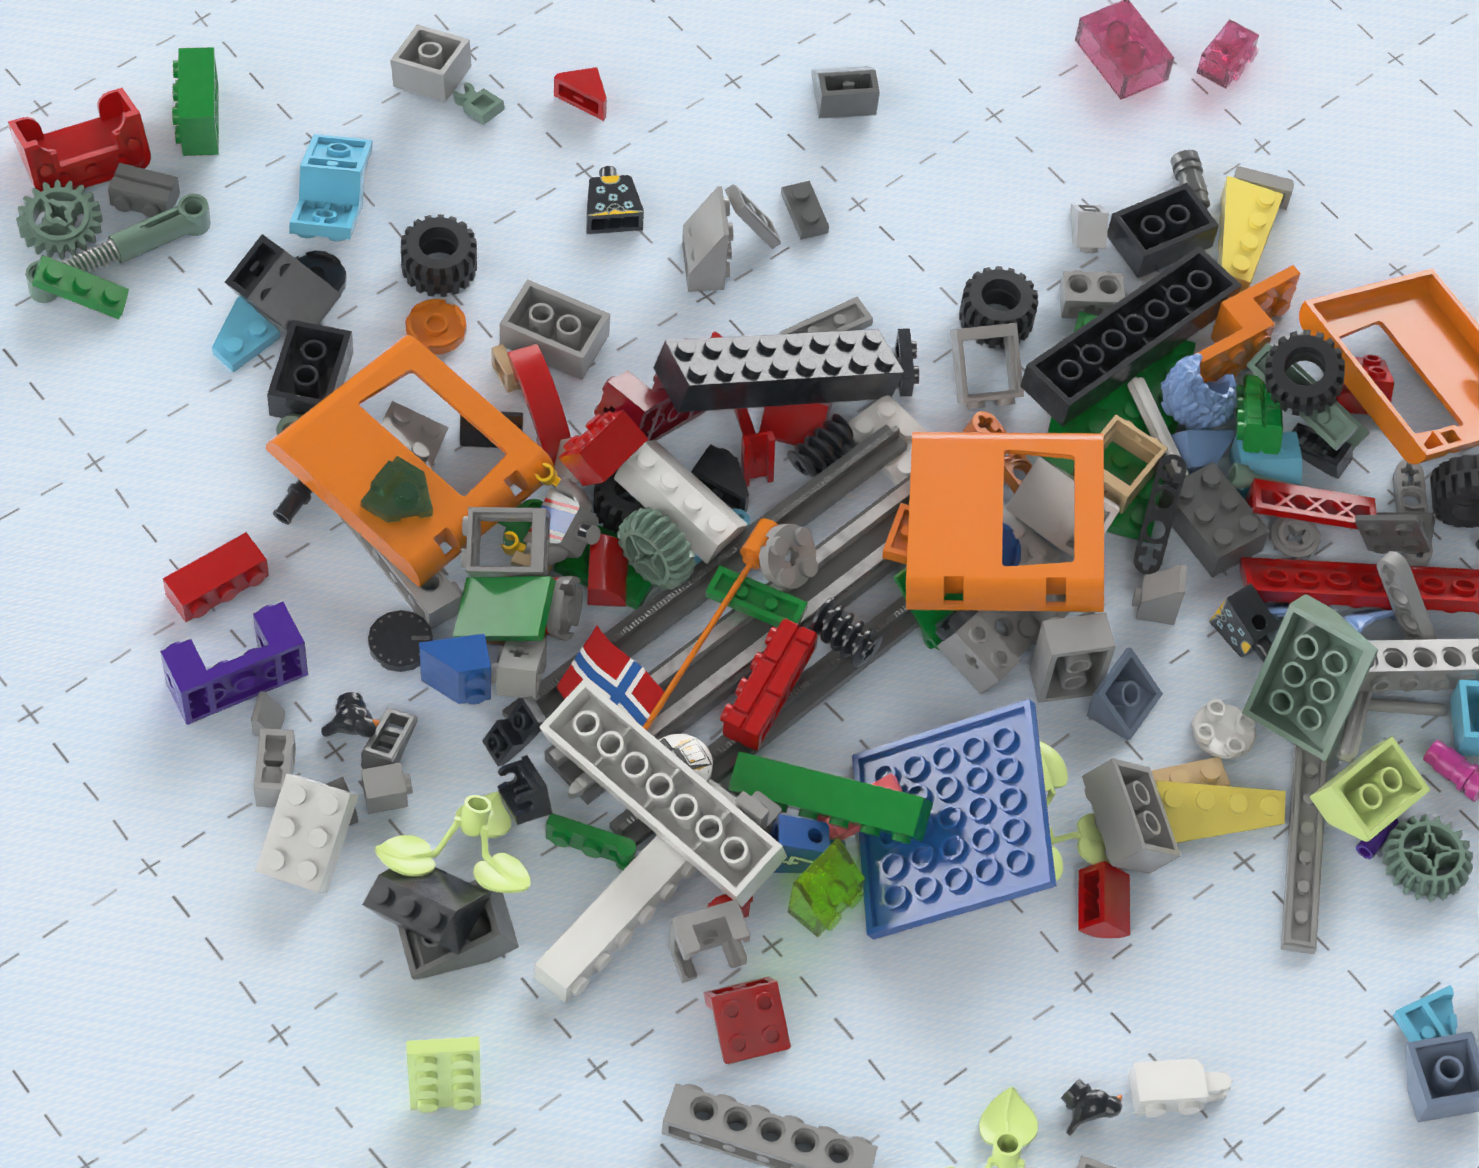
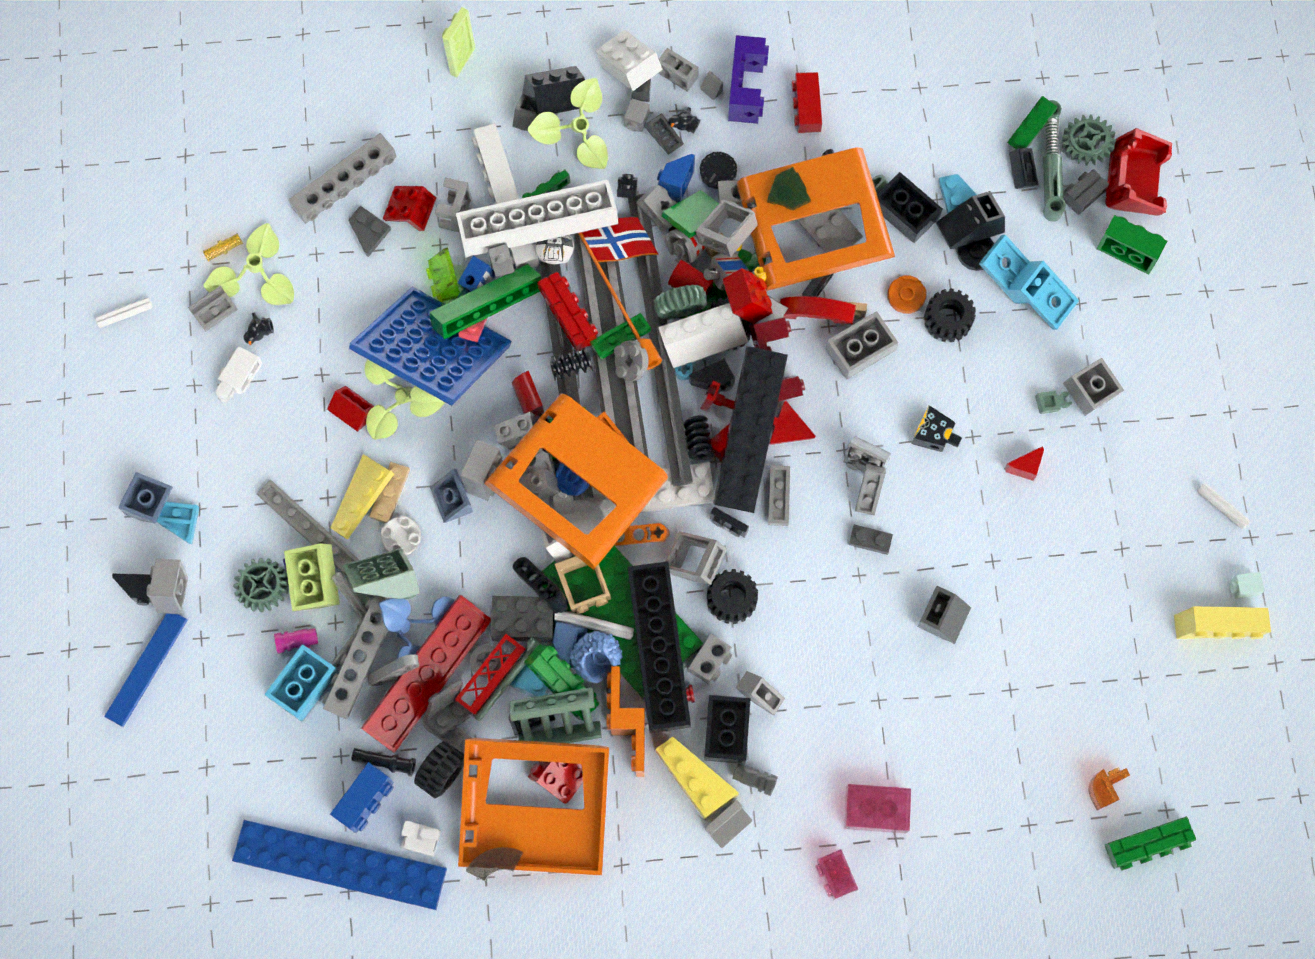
camera: 130 degrees right, 15 degrees up
(153, 276) = (1023, 168): none -> black slope
(527, 792) = (587, 171): black hinge -> none
(822, 1056) = (368, 229): none -> dark grey wing
(915, 686) = (527, 394): none -> red brick
(1130, 816) = (379, 442): light grey brick -> none
(1161, 595) = (494, 553): light grey slope -> none
(1245, 623) = (447, 584): black torso -> none
(1310, 349) = (558, 713): black tyre -> none

